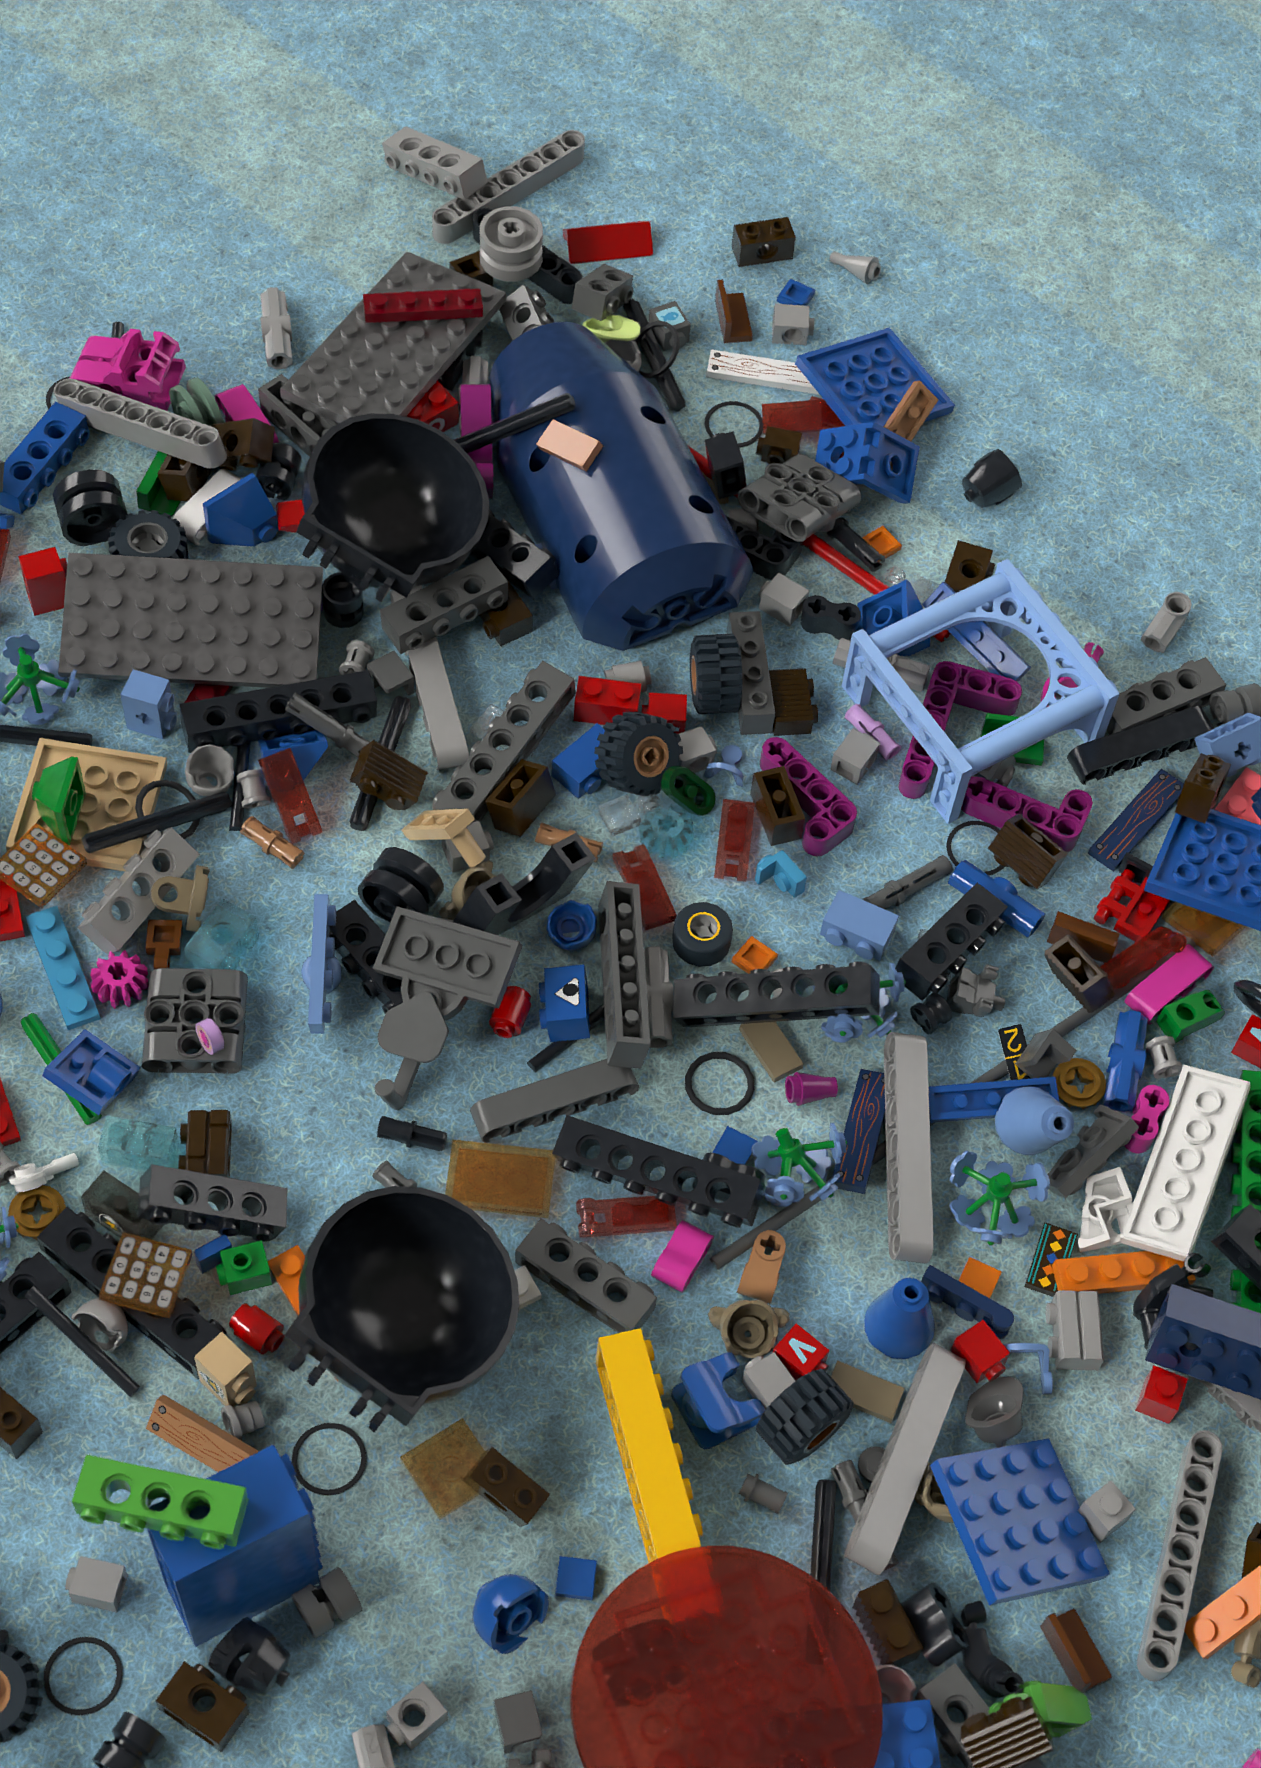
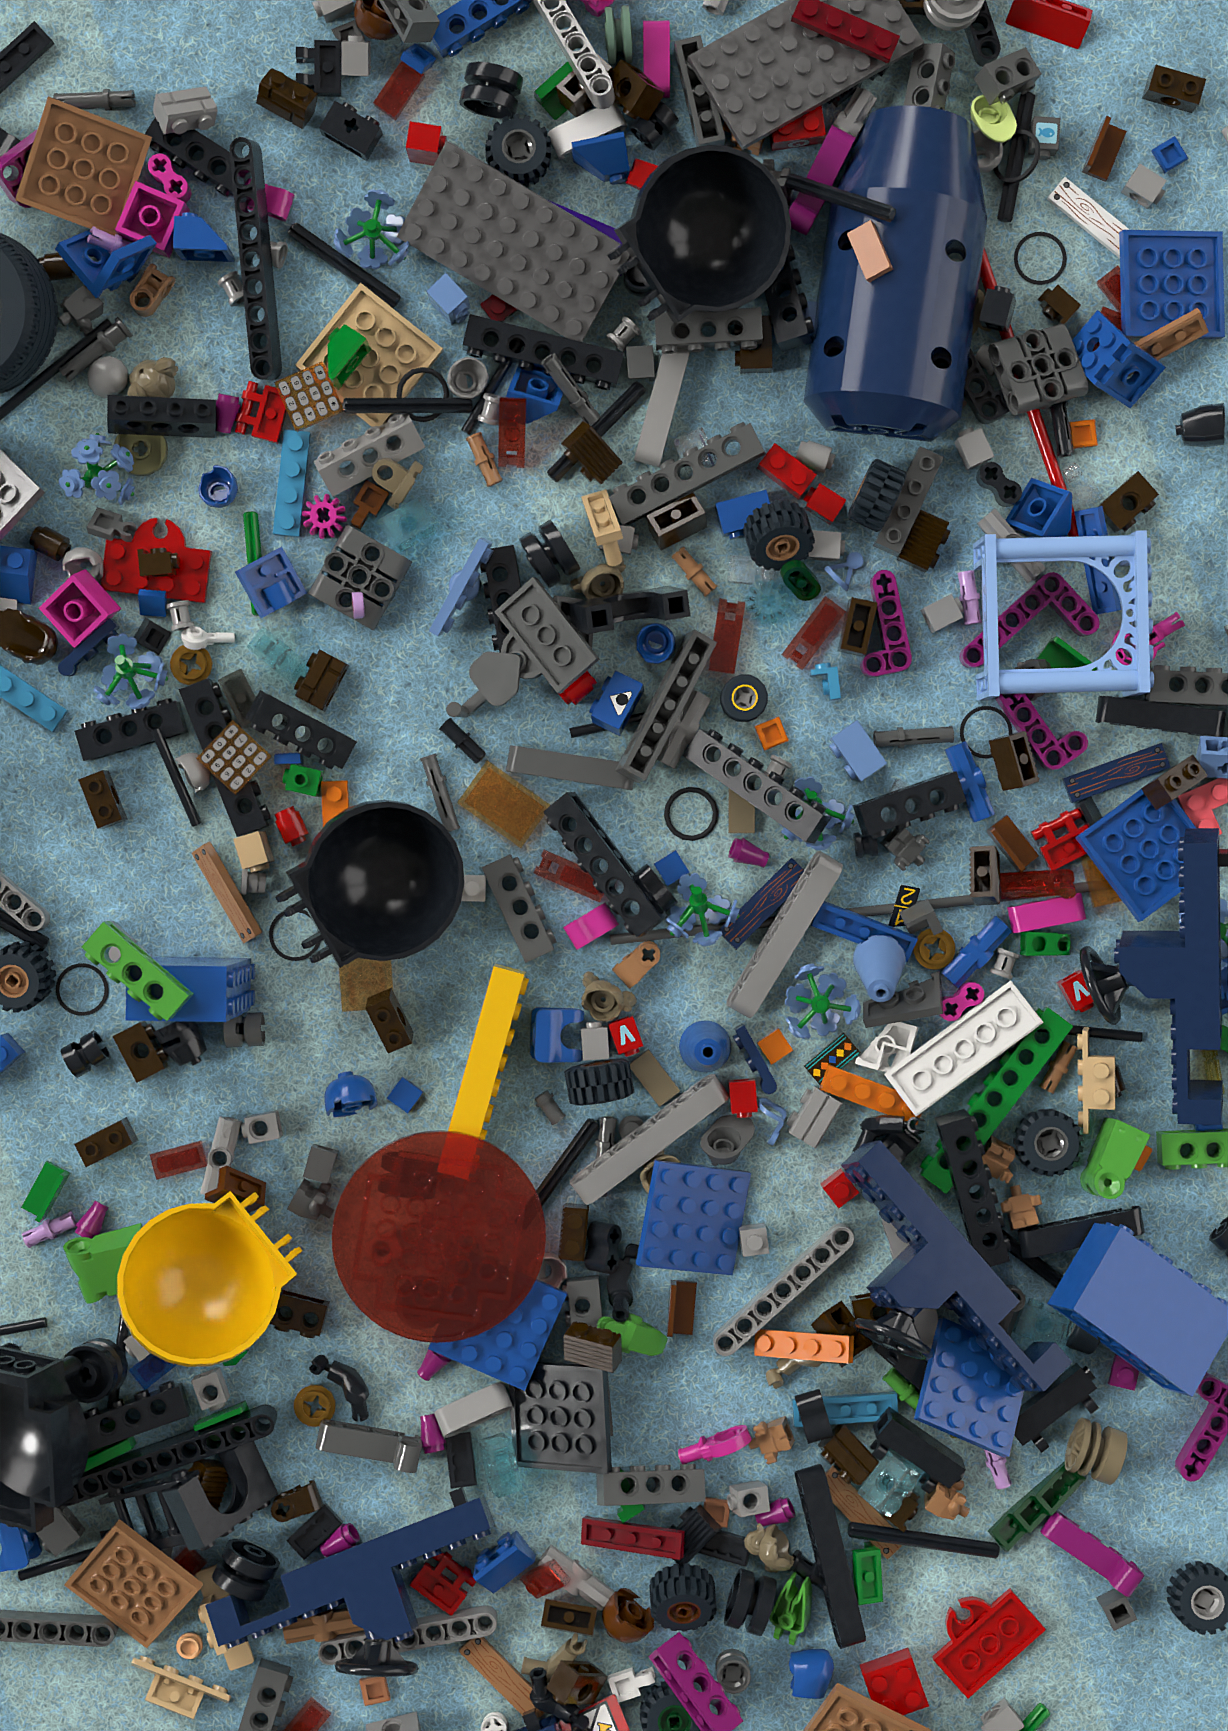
camera: 35 degrees right, 30 degrees up
(793, 416) = (1086, 281): clear red plate -> none

